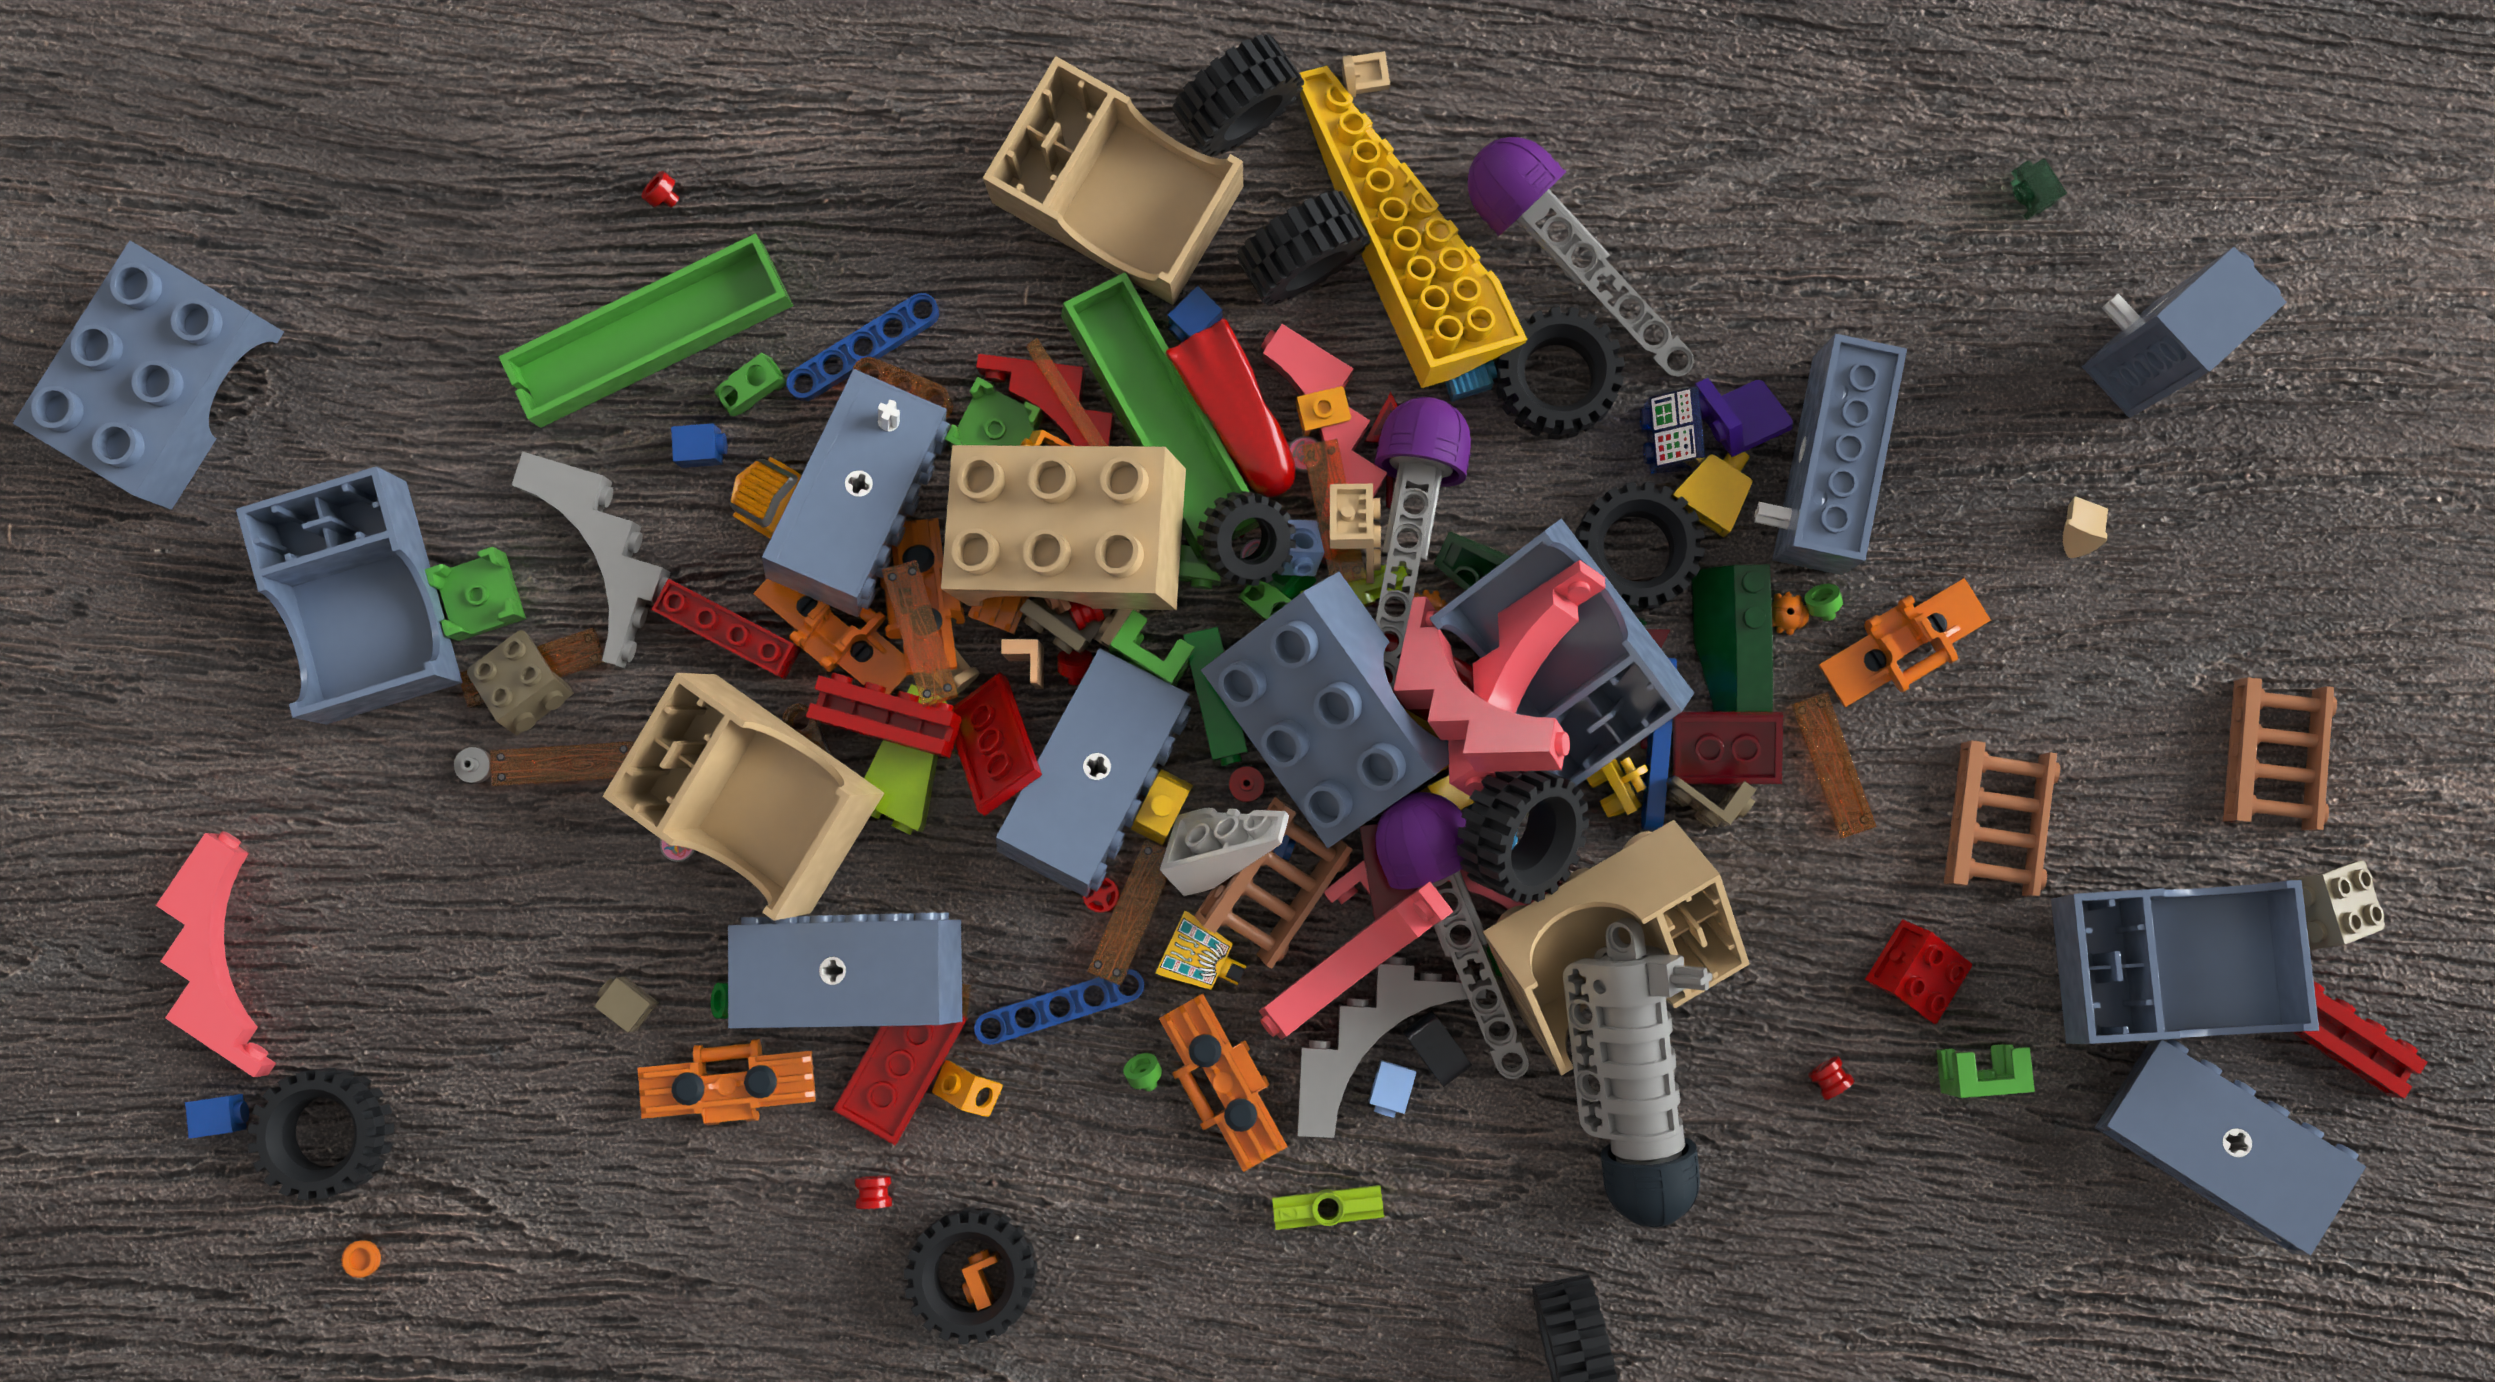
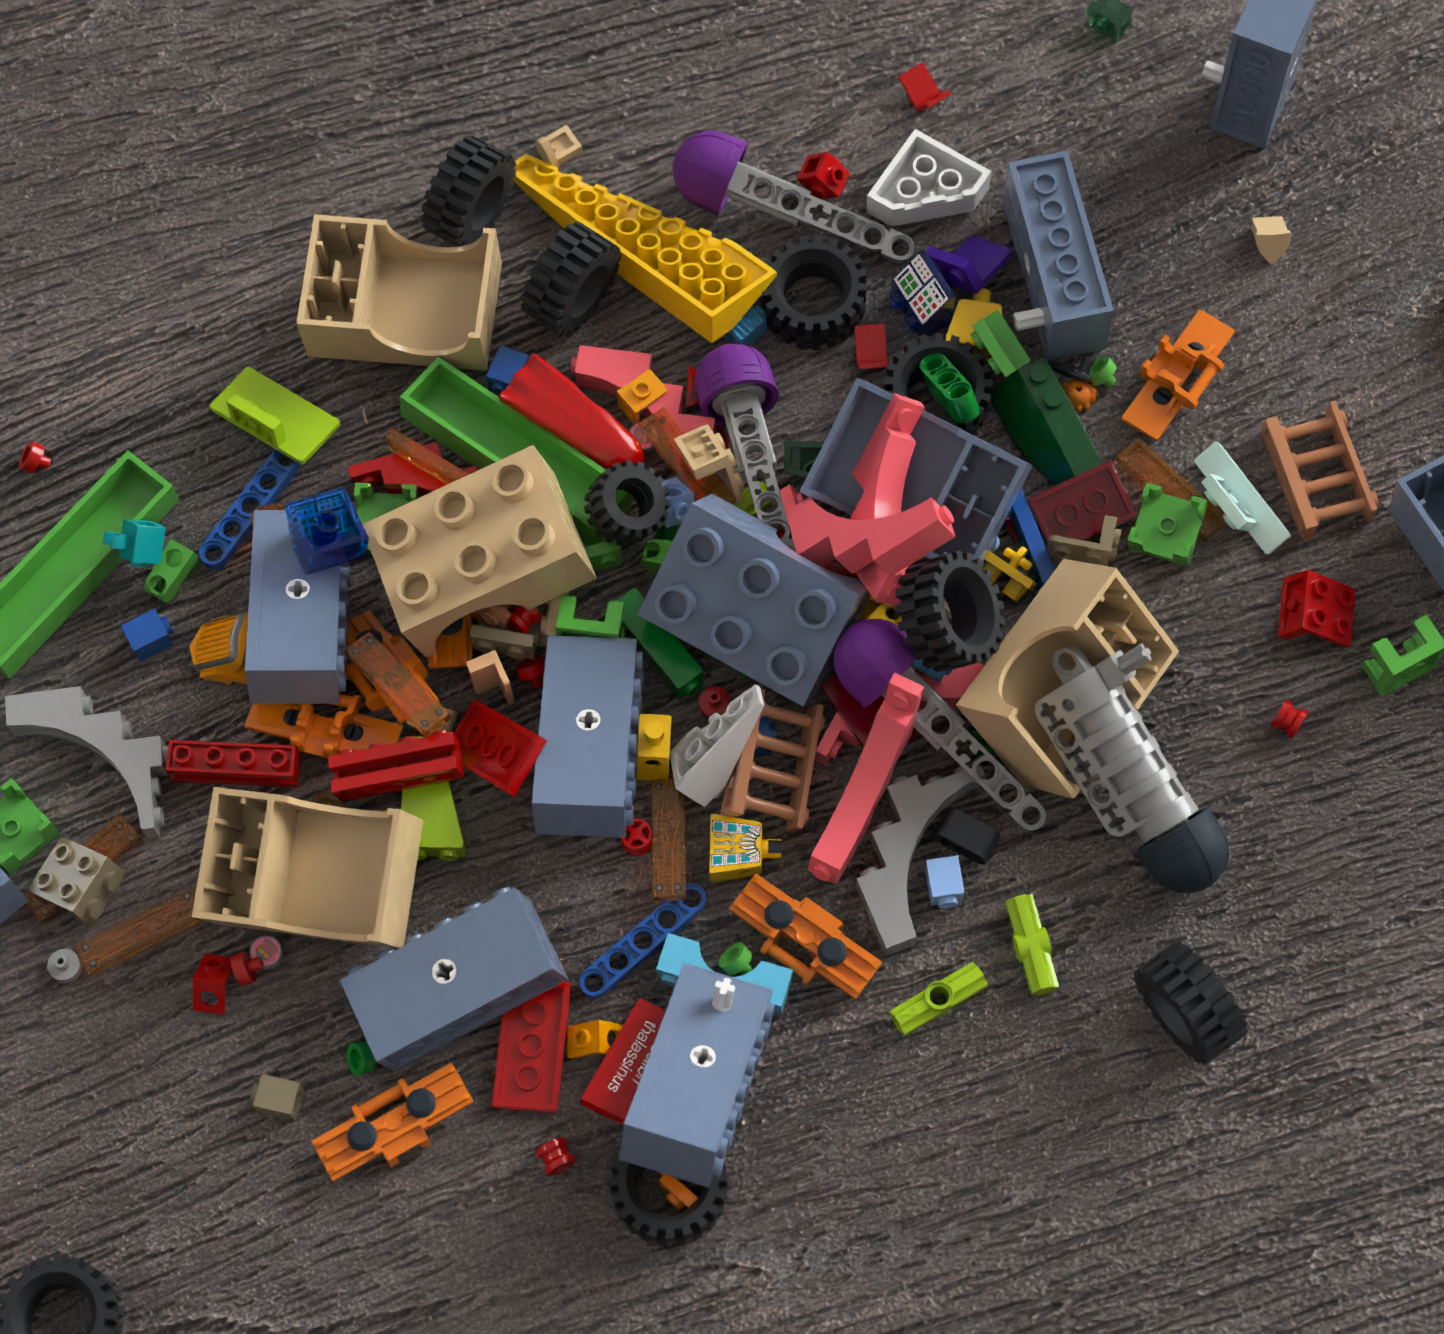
camera: 25 degrees left, 15 degrees down
(612, 849) = (212, 977): none -> red bracket
(648, 853) = (245, 968): none -> red tile
(724, 345) = (138, 543): none -> teal brick
(911, 435) = (325, 530): none -> clear blue slope
(929, 256) = (275, 415): none -> lime bracket
(995, 1140) = (622, 1068): none -> red tile
(1007, 1228) = (697, 1076): none -> sand blue piece
(1157, 1114) = (681, 950): none -> medium azure arch
(1449, 1194) = (1032, 945): none -> lime piece
(1591, 464) = (870, 346): none -> red bracket
(1632, 240) = (823, 175): none -> red brick
(1650, 557) = (949, 388): none -> green beam
(1728, 531) = (1001, 344): none -> bright green bracket
(1740, 300) = (927, 183): none -> white brick
(1790, 182) = (921, 87): none -> red bracket
(1792, 589) = (1071, 371): none -> black bar
(1808, 809) = (1167, 526): none -> bright green panel
(1899, 812) = (1239, 499): none -> light aqua bracket

